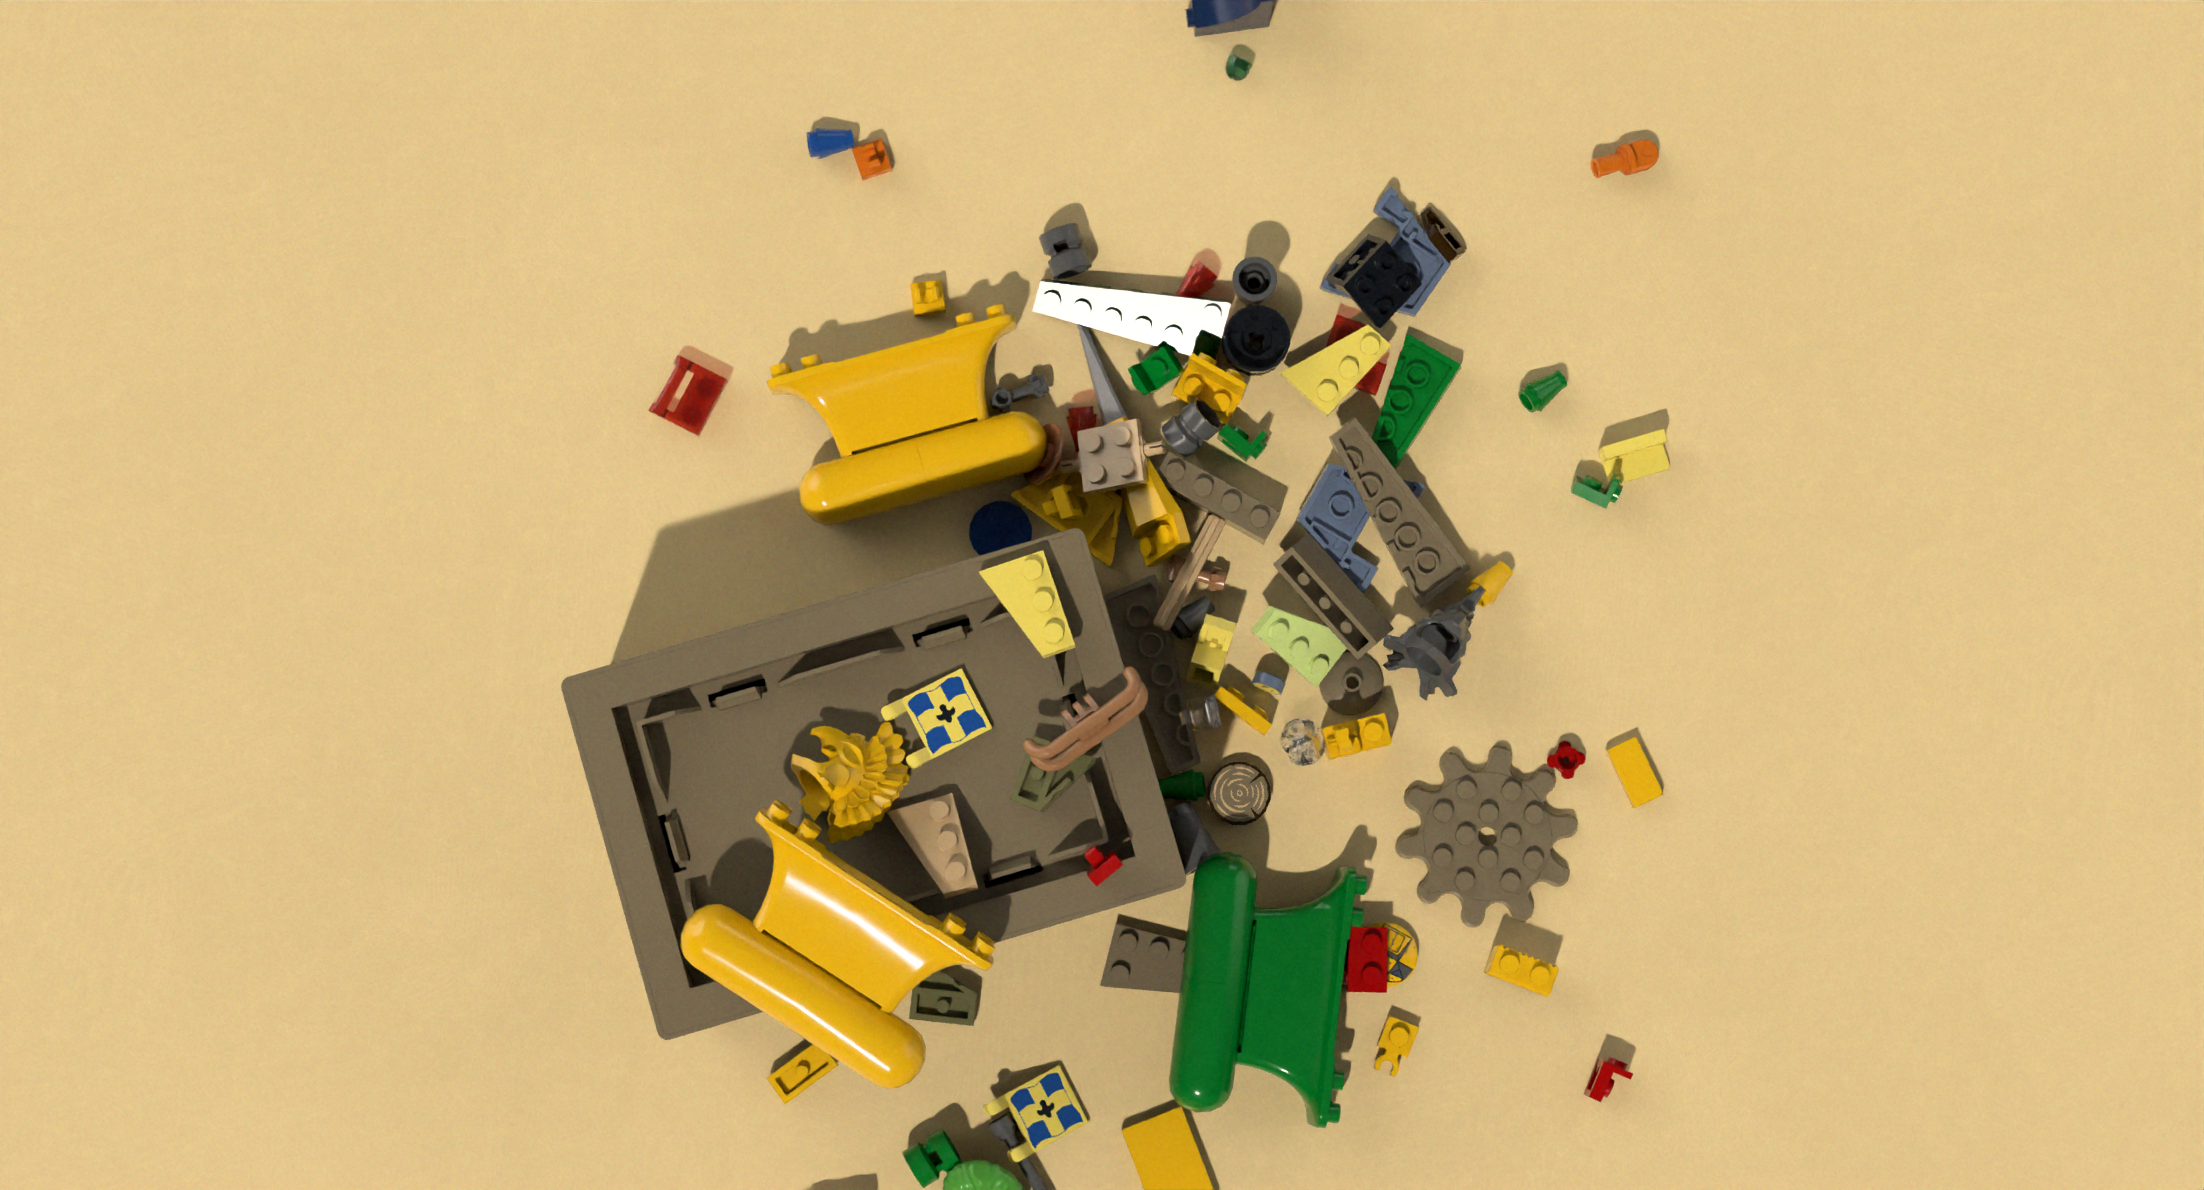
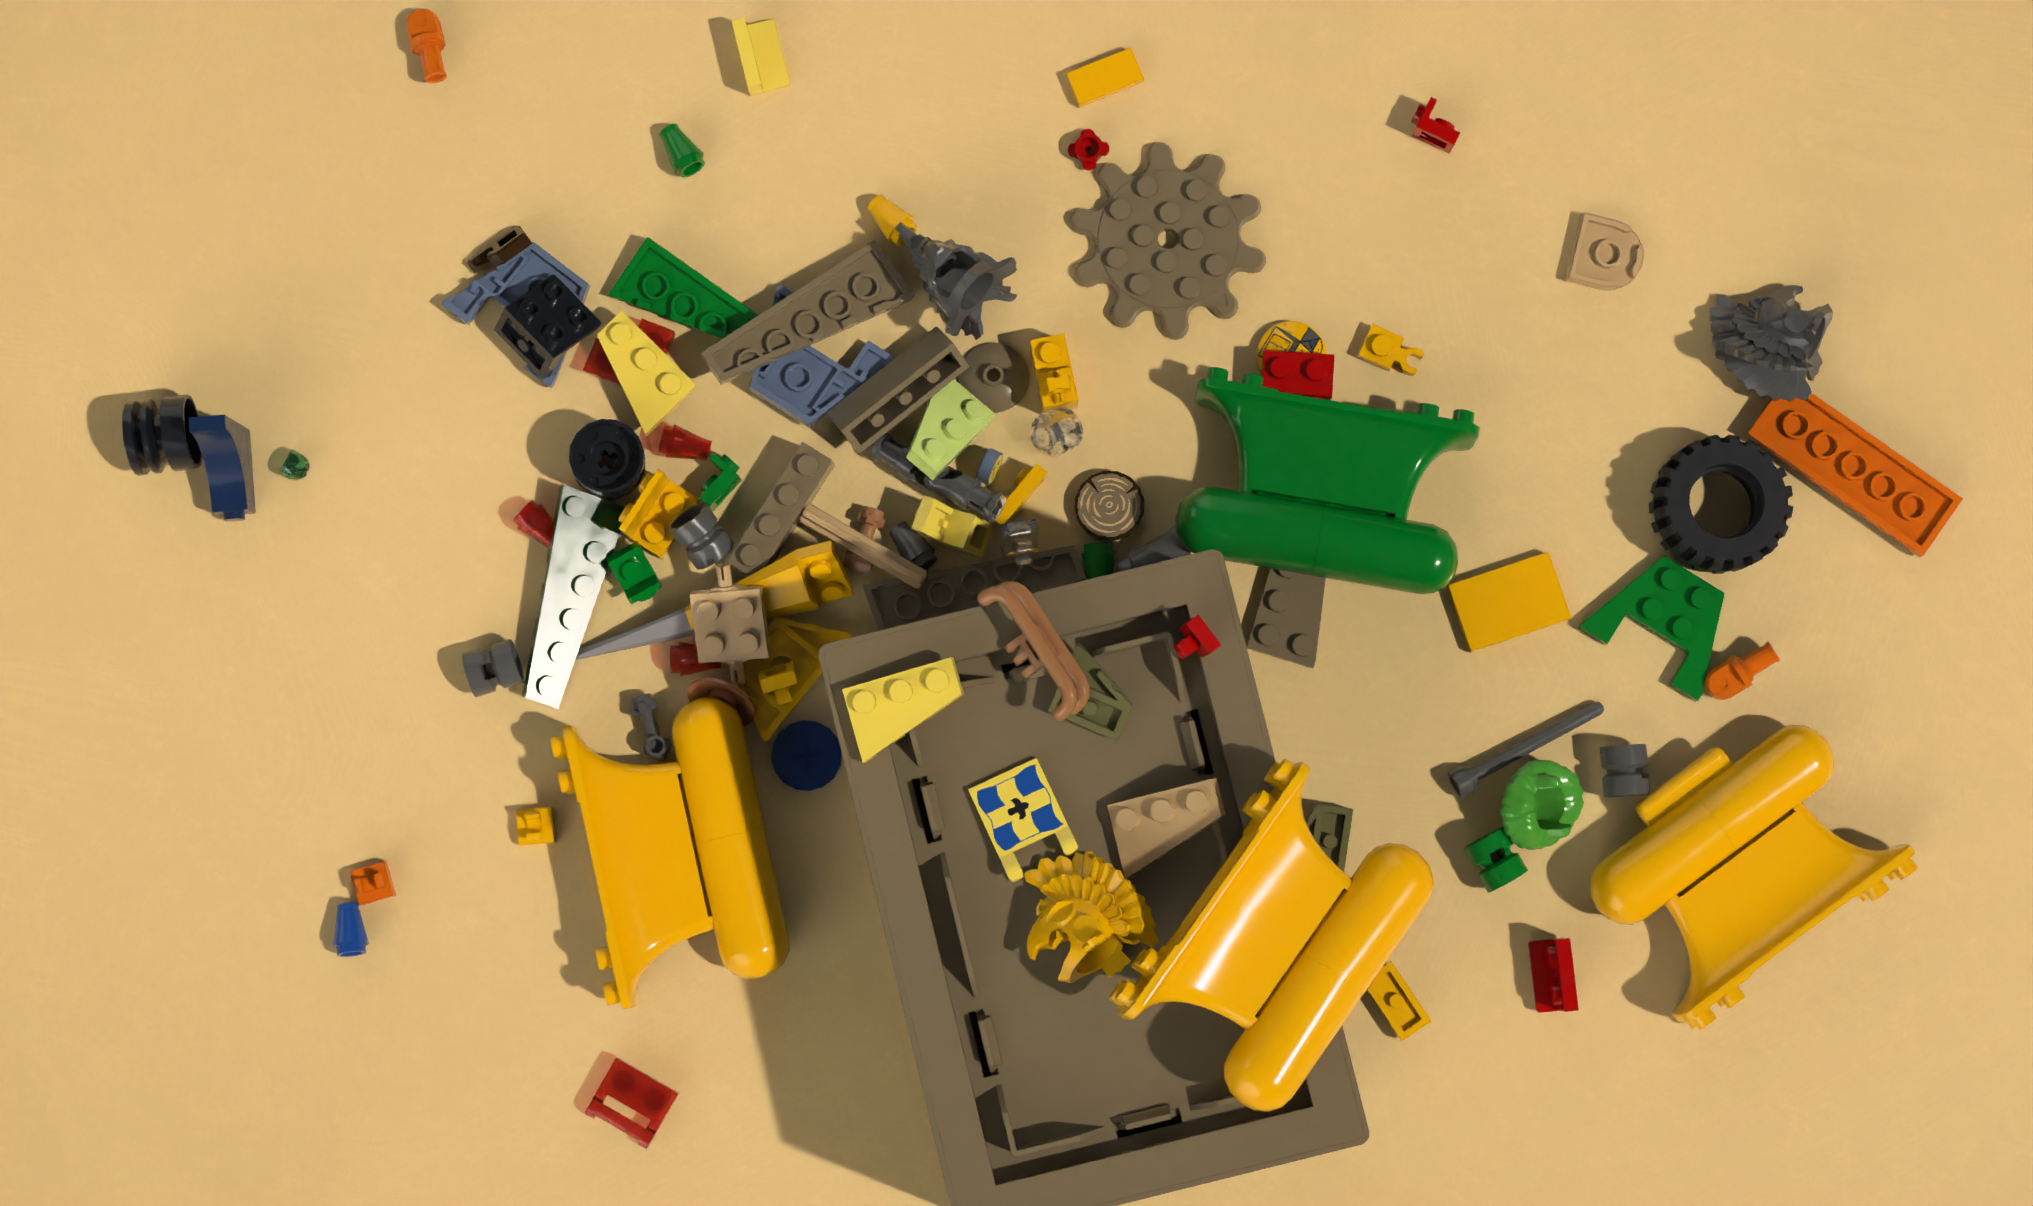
camera: 90 degrees left, 0 degrees up
(1043, 1111) = (1447, 736): light yellow flag -> none
(1249, 647) = (949, 484): none -> dark grey piece
(1254, 270) = (531, 449): dark grey plant -> none
(1274, 408) = (683, 444): none -> clear red cone
(1521, 970) = (1314, 209): yellow brick -> none
(1591, 490) = (794, 103): green bracket -> none

